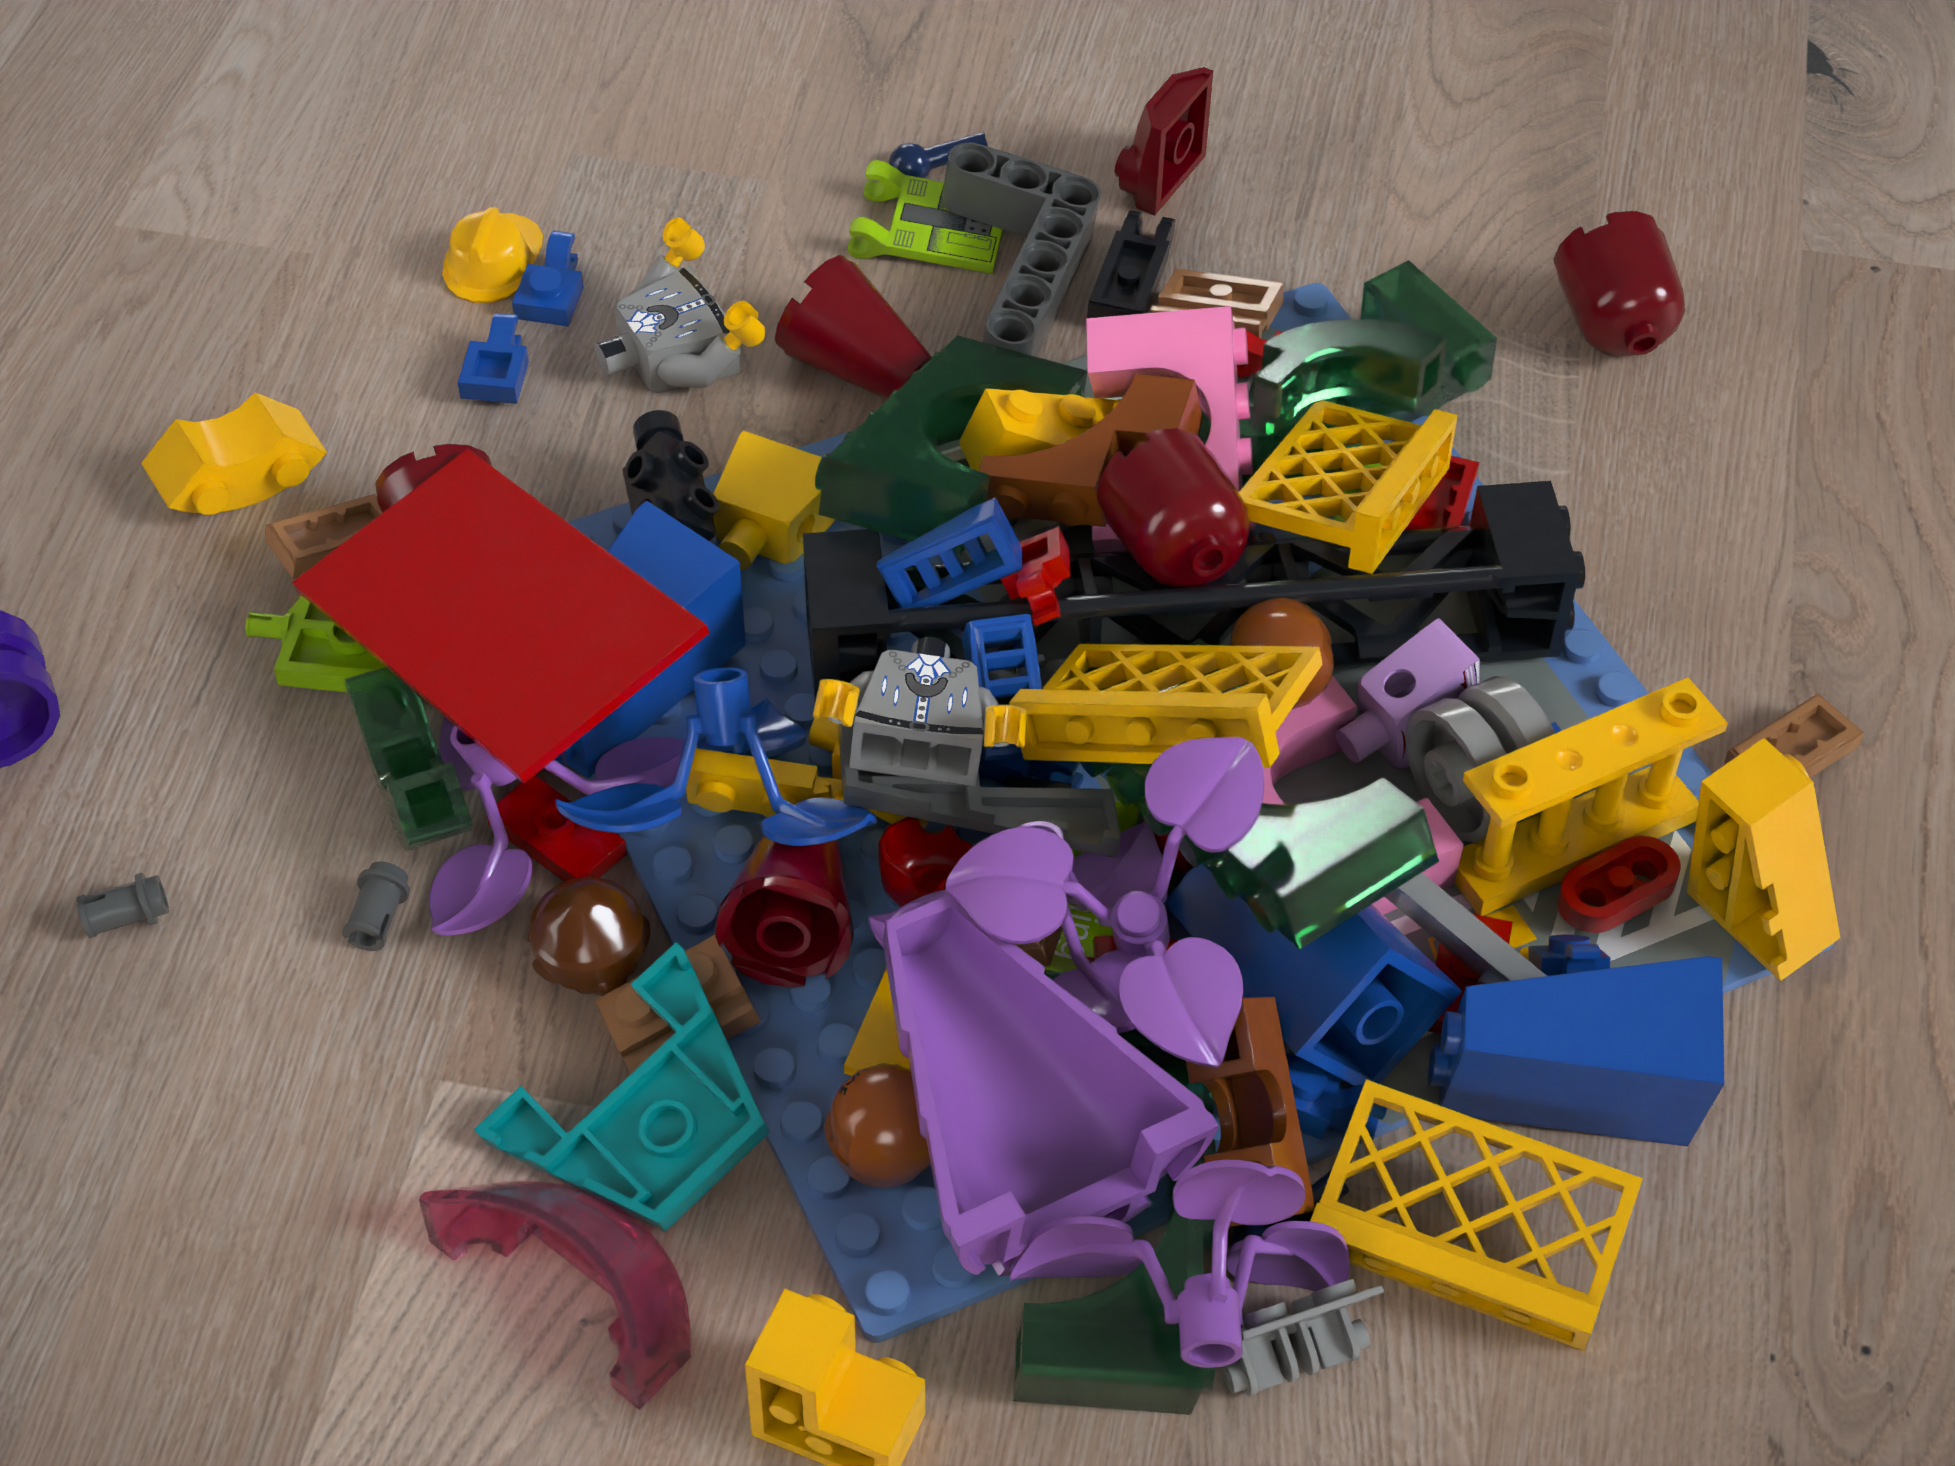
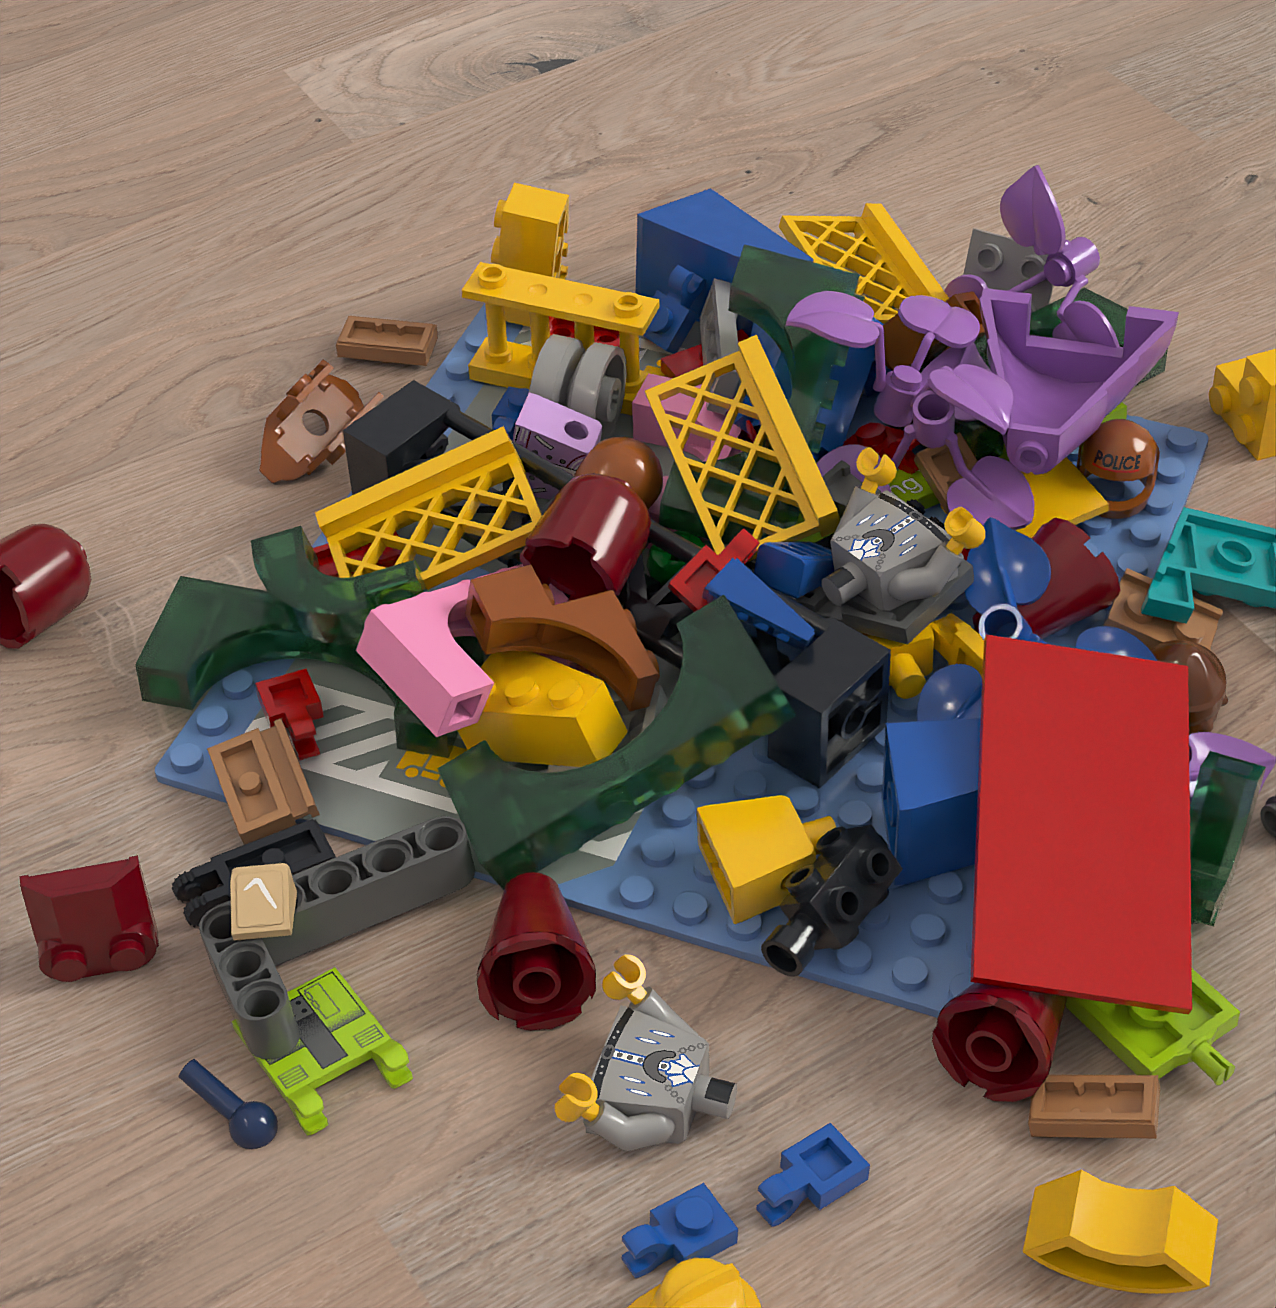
camera: 130 degrees left, 5 degrees down
(1057, 198) = (262, 901): none -> tan slope
(1715, 644) = (286, 444): none -> dark orange piece

